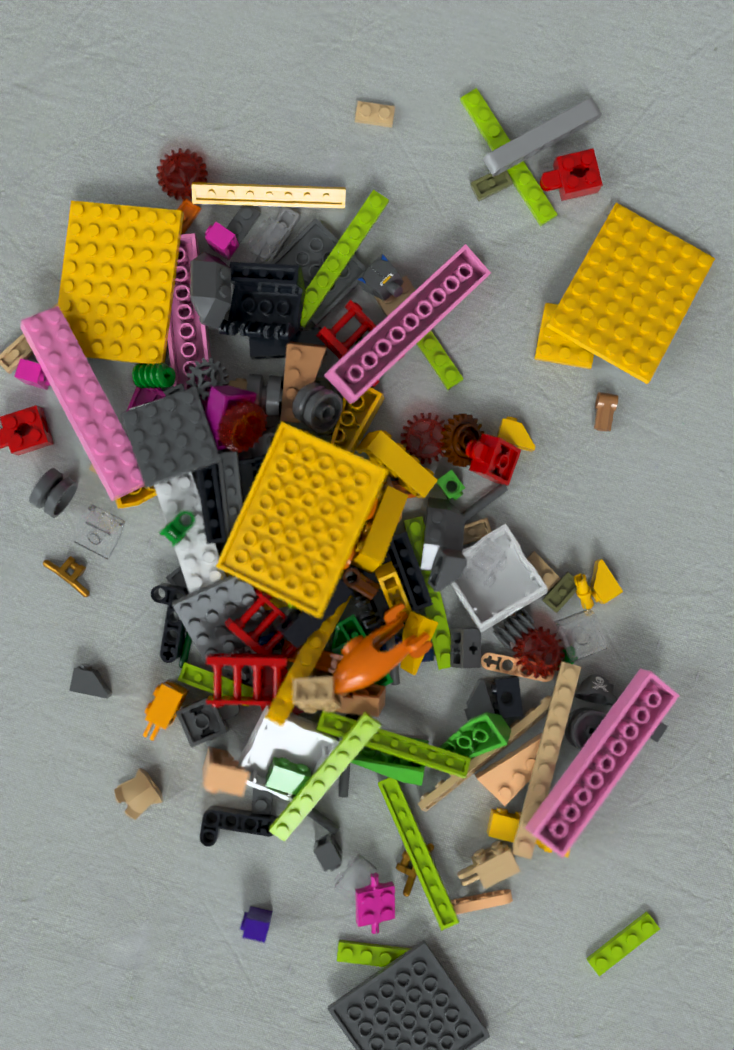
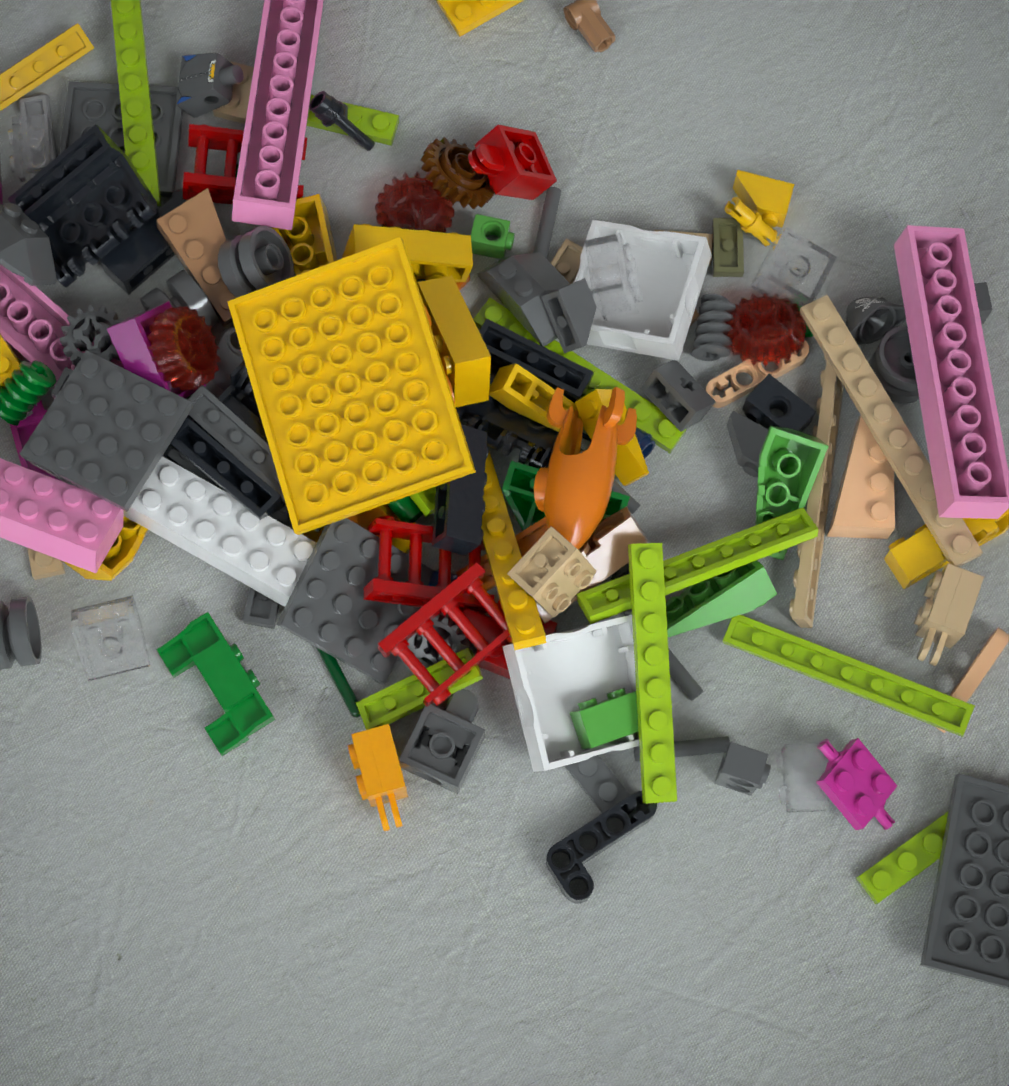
camera: 45 degrees left, 15 degrees down
(70, 579) = (123, 725): pearl gold piece -> none
(89, 682) = (256, 831): dark grey slope -> none
(134, 598) = (220, 666): none -> green bracket
(138, 794) = (442, 911): tan piece -> none
(171, 622) = (299, 666): black beam -> none
(177, 528) = (207, 529): green piece -> none
(223, 773) = (523, 769): light nougat wedge -> none
(256, 924) = (737, 938): dark purple brick -> none
(361, 583) = (487, 413): reddish brown piece -> none
(402, 867) = (864, 713): pearl gold piece -> none
(428, 355) = (334, 111): none -> black piece
(515, 434) = (517, 117): yellow slope -> none

